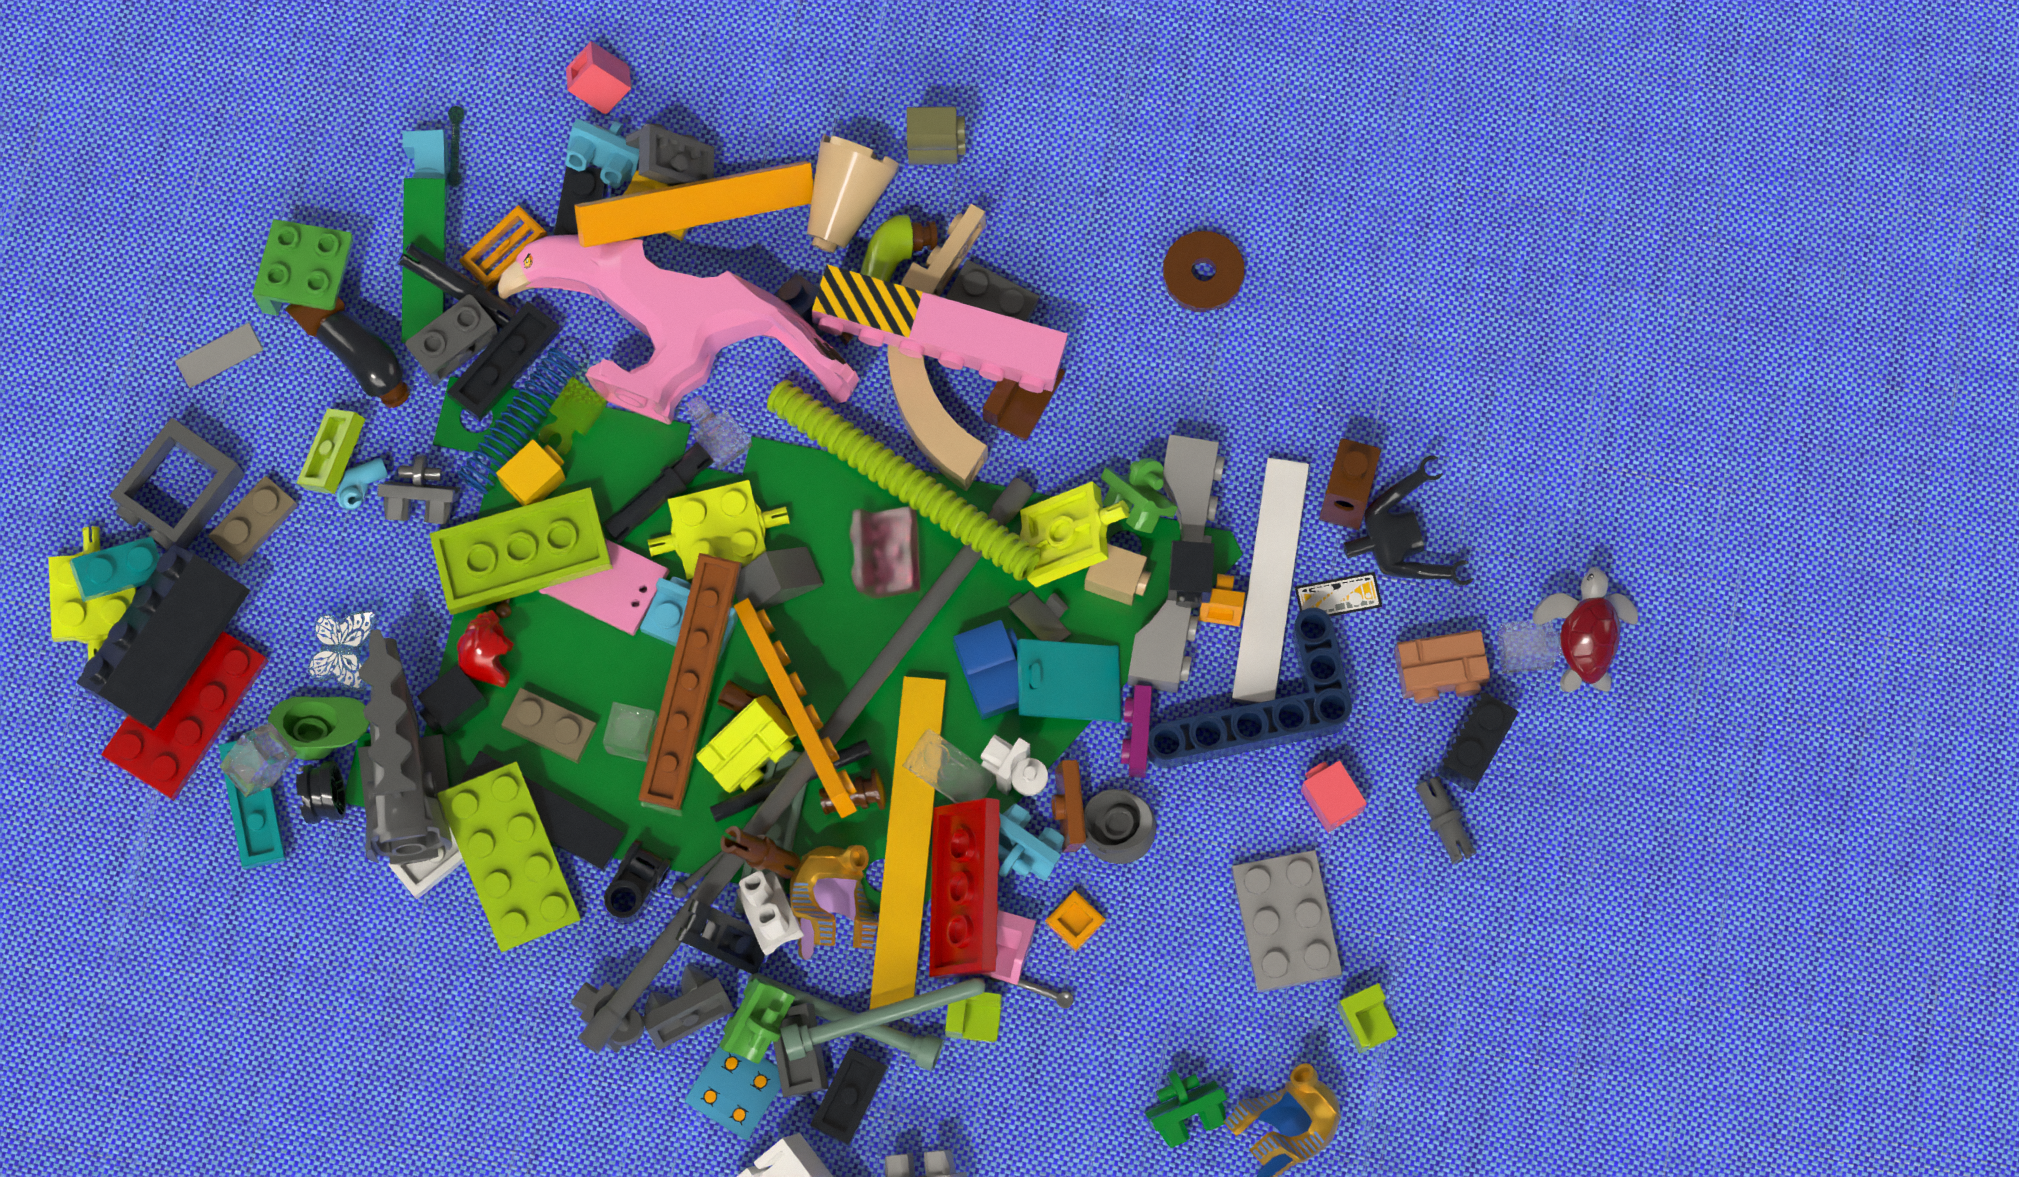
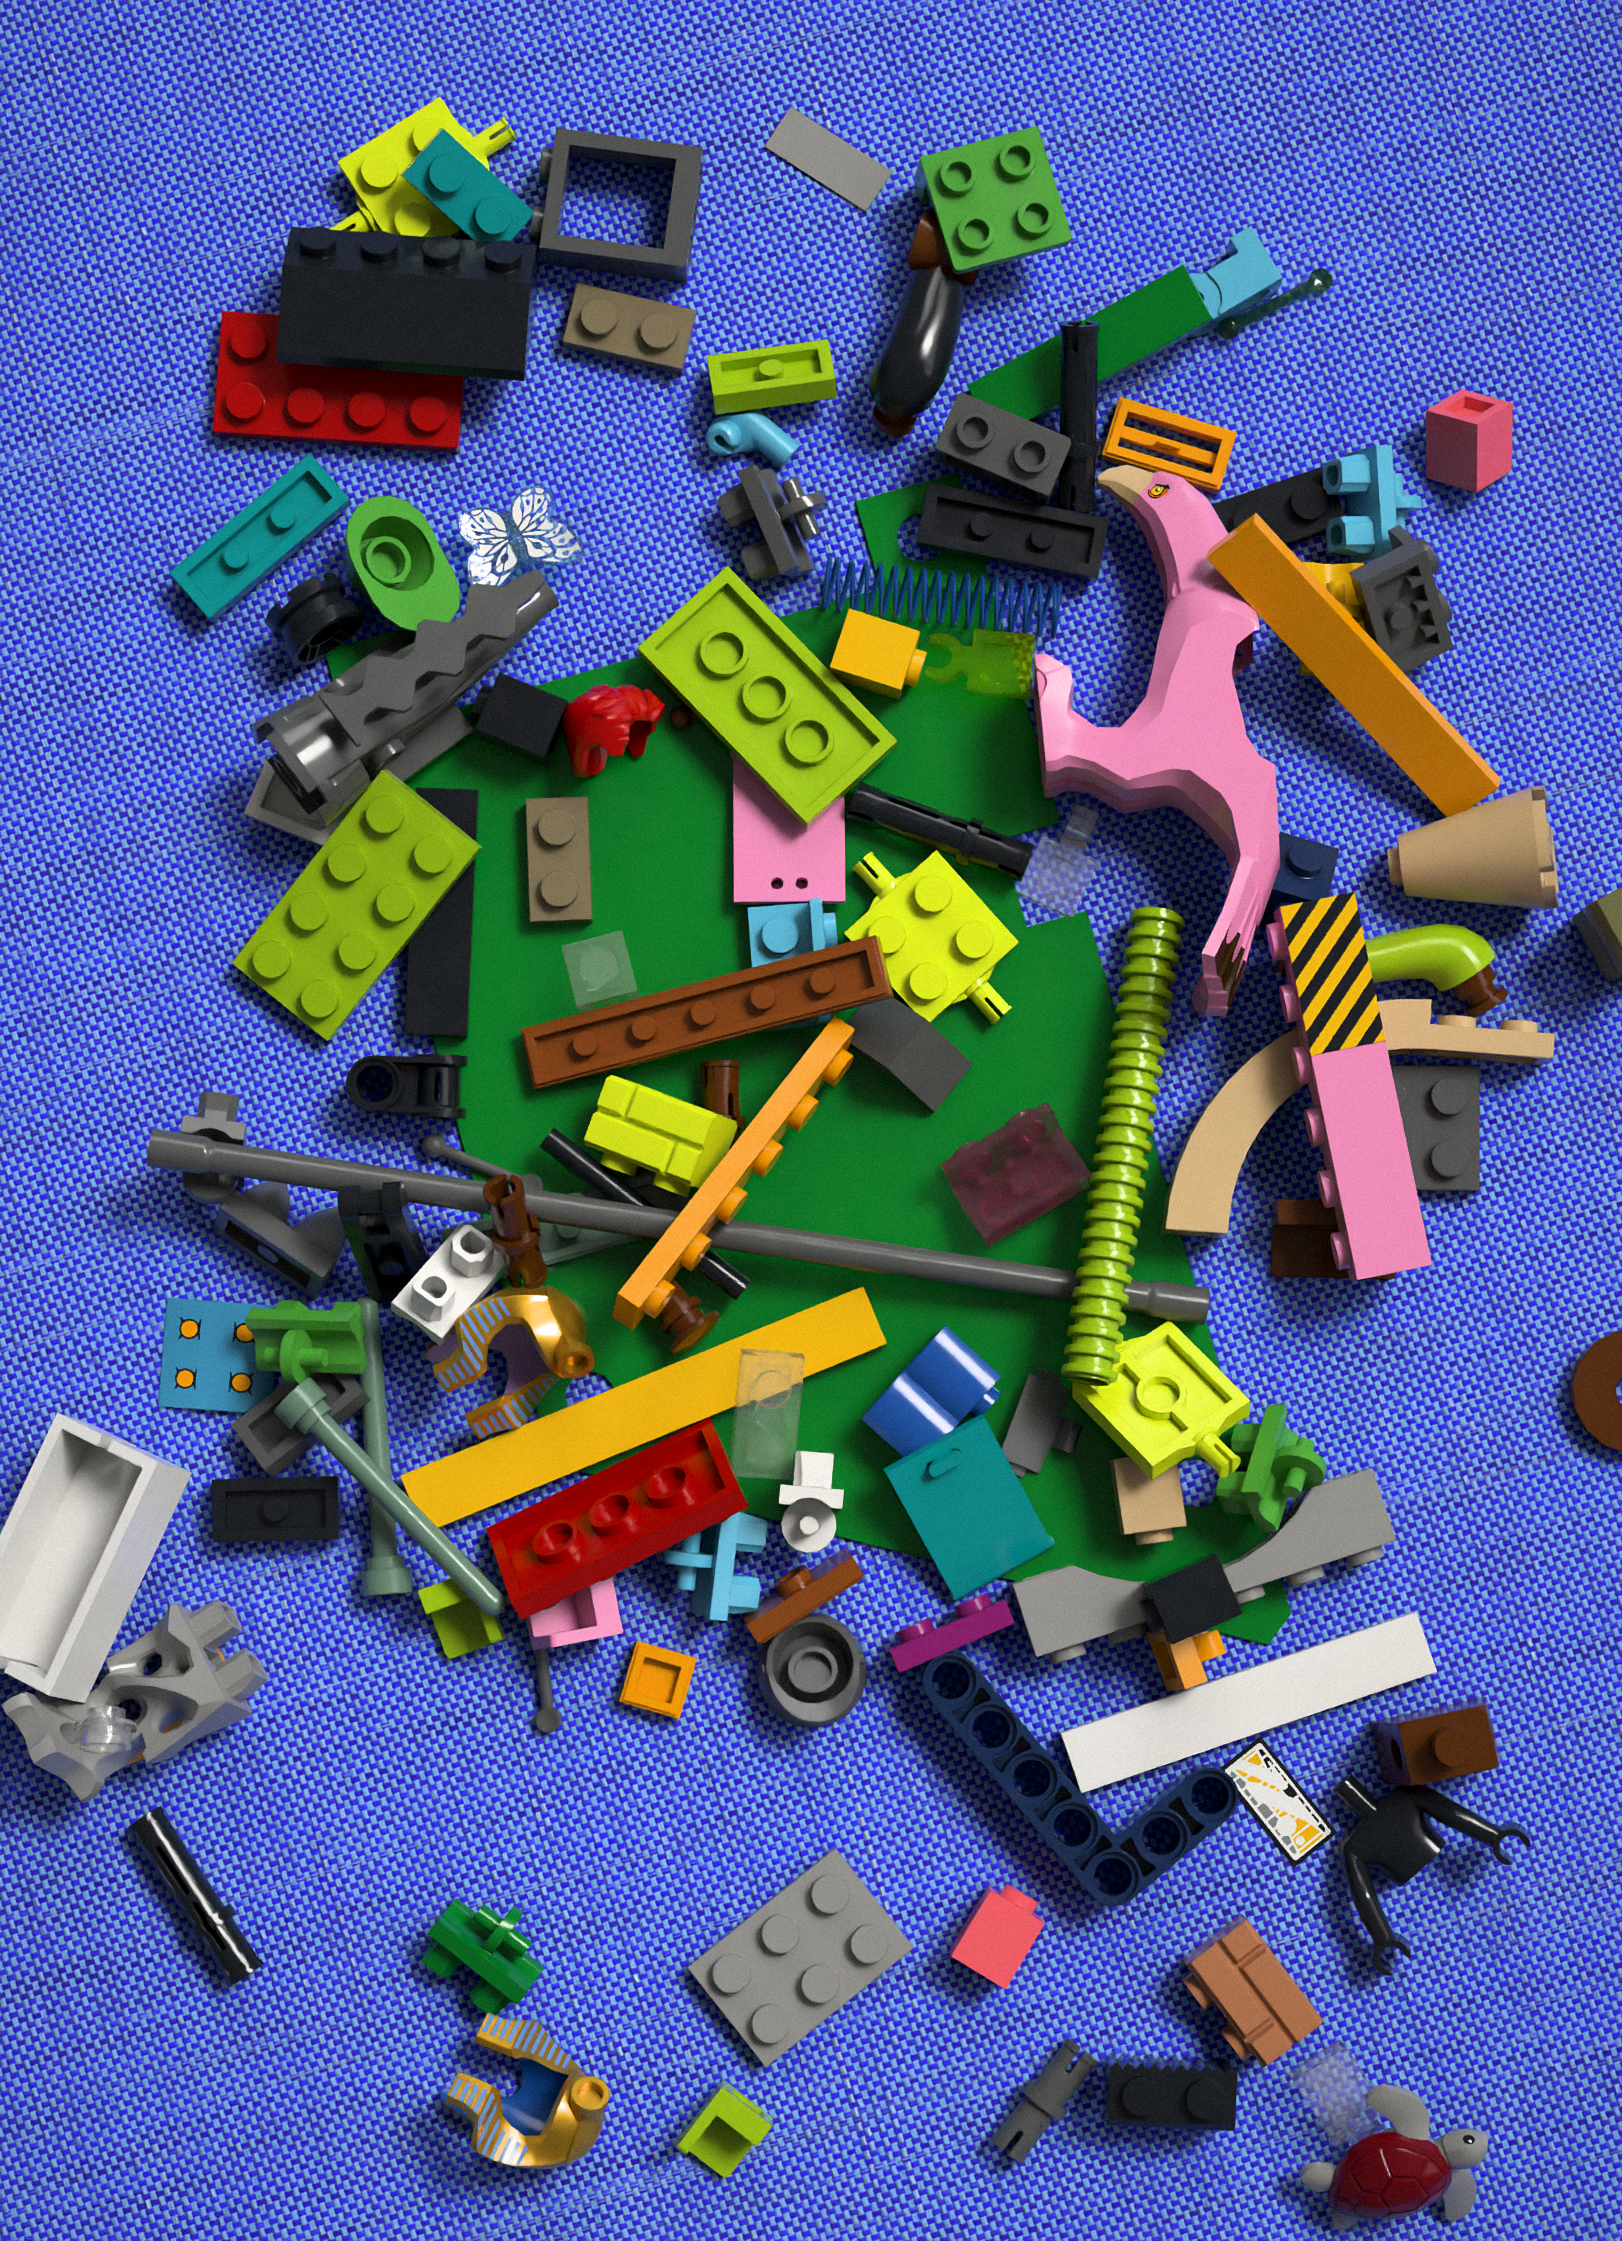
camera: 60 degrees right, 10 degrees up
(258, 759) = (306, 517): clear brick -> none

